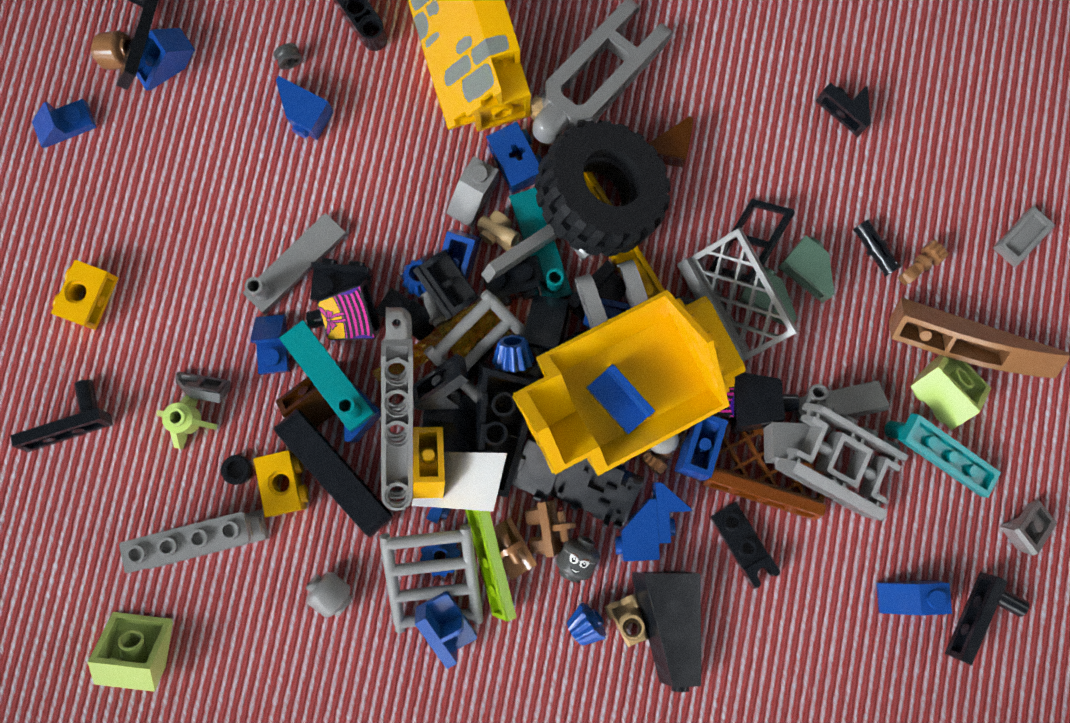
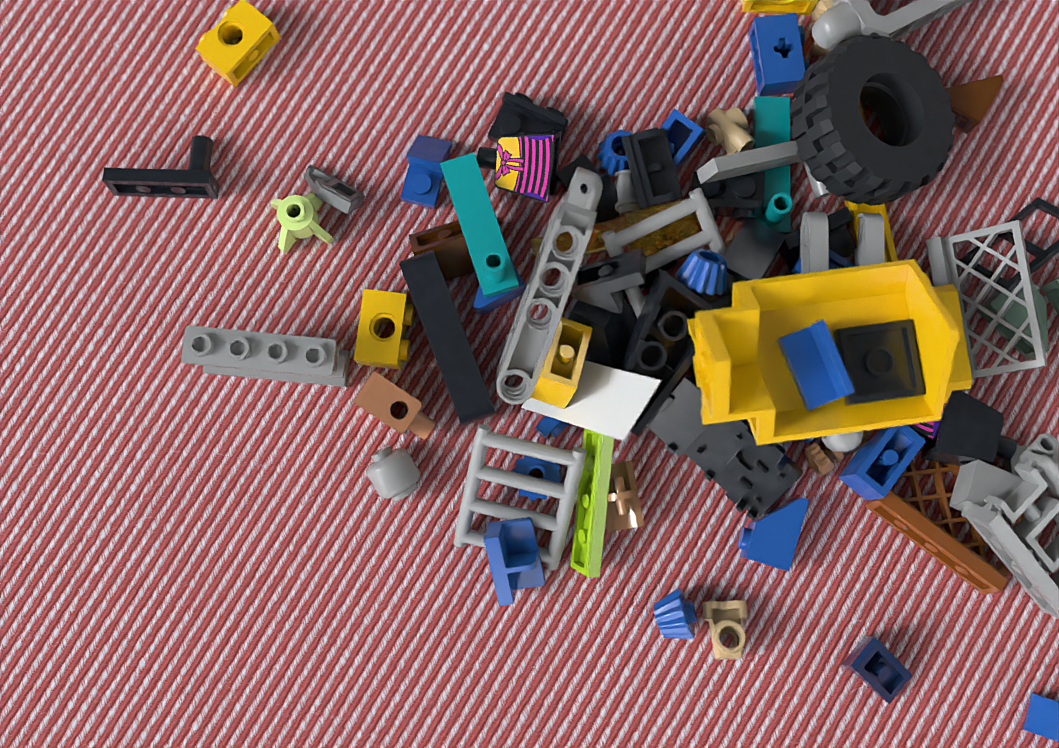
camera: 25 degrees right, 0 degrees up
(131, 652) = (152, 457): yellowish green slope -> none
(237, 469) = (338, 297): black tile -> none
(293, 264) = (482, 89): light grey piece -> none
(295, 538) = (380, 394): none -> nougat torso
(473, 191) = (716, 76): light grey slope -> none
(553, 528) = (672, 474): medium nougat hips -> none
(577, 559) = (692, 536): dark grey head -> none
(666, 503) = (819, 511): blue slope -> none
(669, 377) = (880, 361): none -> black tile
(673, 624) = (777, 652): black slope -> none
(743, 544) = (891, 591): black plate -> none
(753, 609) = (877, 668): none -> dark blue slope

